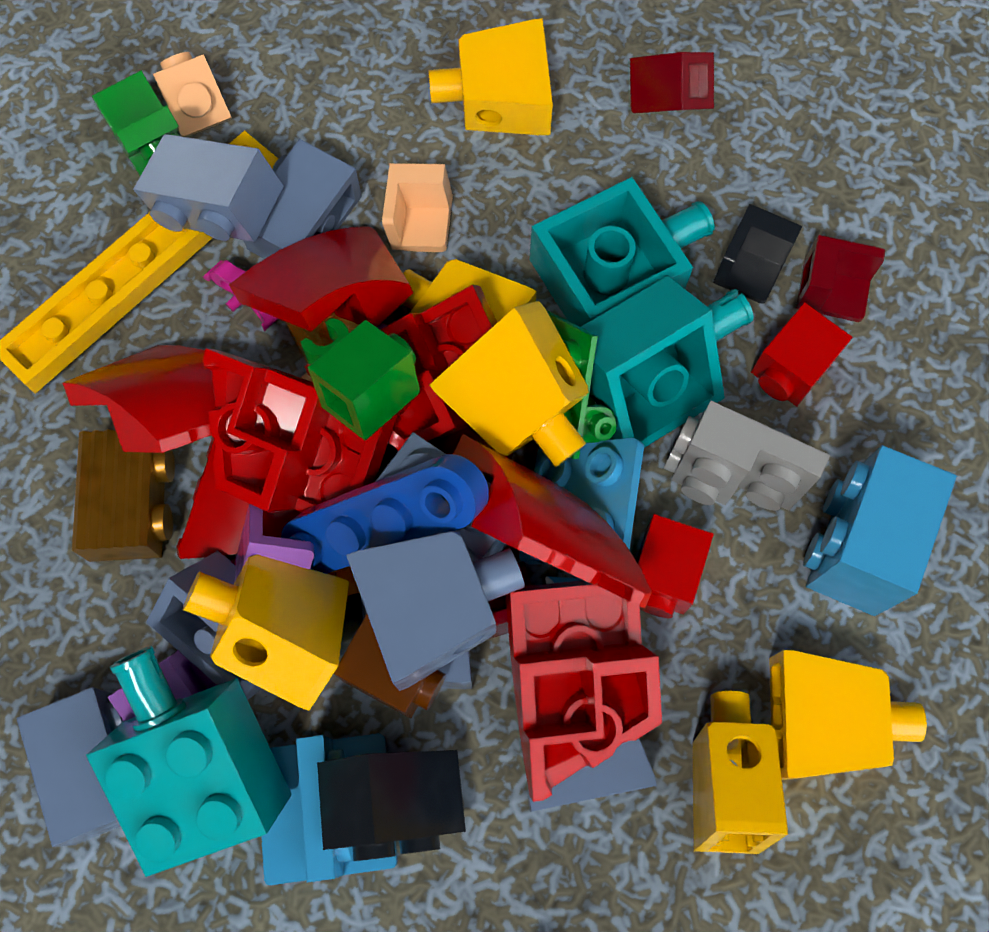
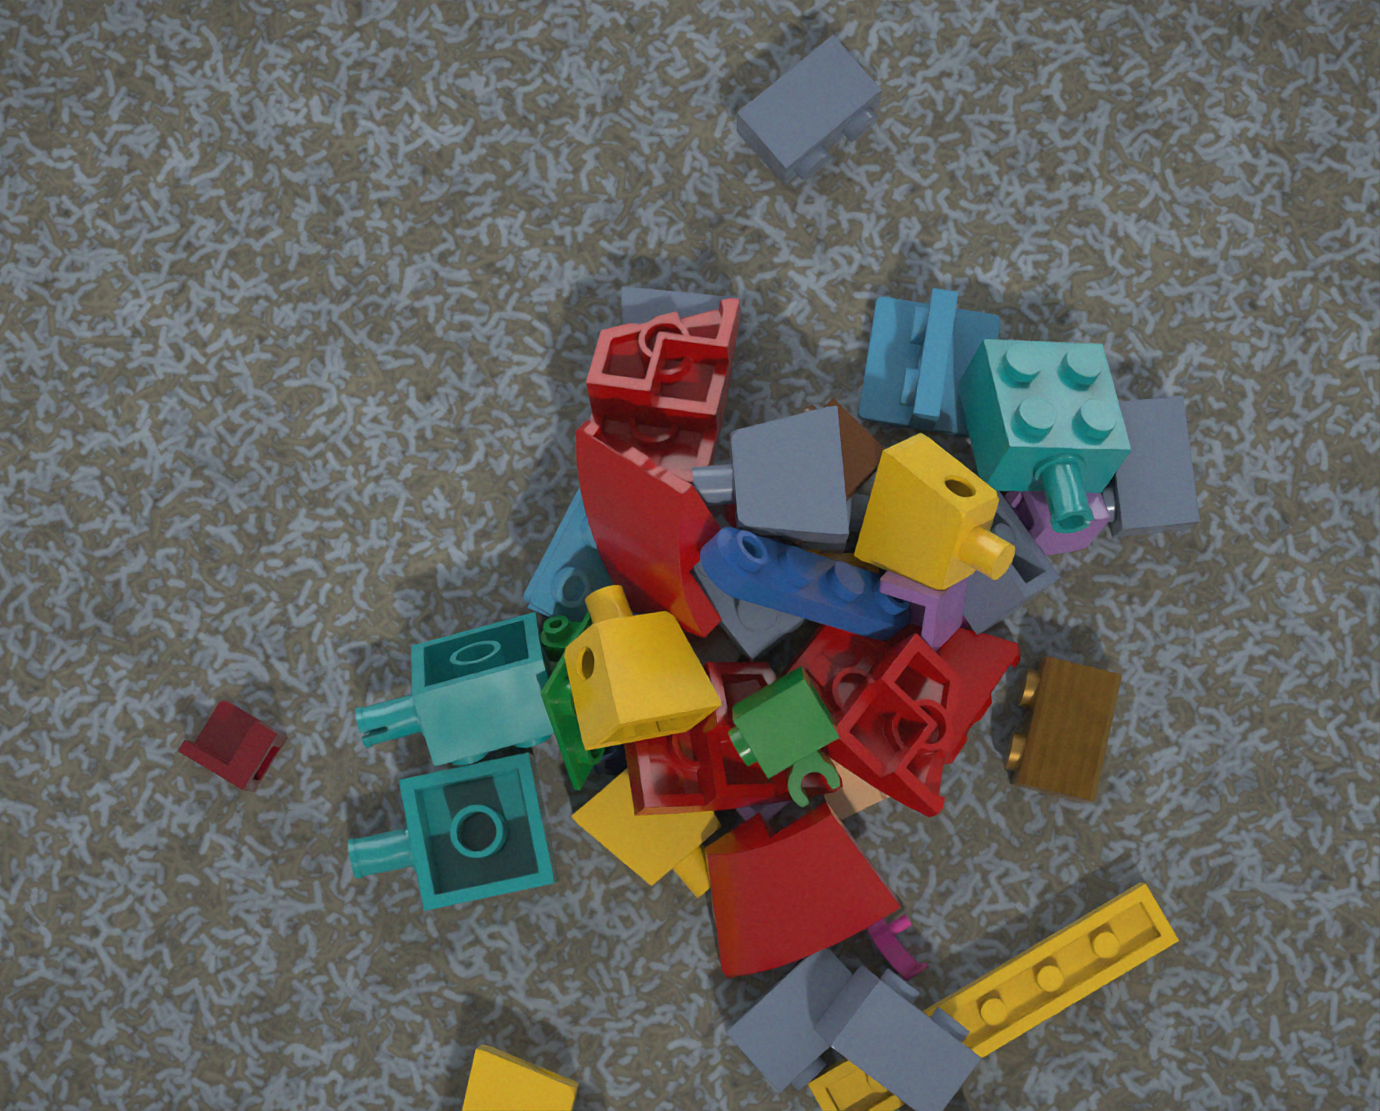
camera: 160 degrees left, 10 degrees up
(152, 397) = (1002, 814): red slope -> none
(390, 798) = (866, 342): black brick -> none
(417, 207) = (667, 975): light nougat panel -> none
(672, 82) = (318, 1057): dark red panel -> none
(672, 564) = (534, 488): red brick -> none
(735, 452) = (444, 566): light grey plate -> none
(740, 804) = (551, 246): yellow torso -> none
(757, 253) = (311, 803): black panel -> none
(799, 355) = (314, 667): red brick -> none
(836, 715) = (432, 301): yellow torso -> none
(879, 531) = (324, 450): dark azure brick -> none

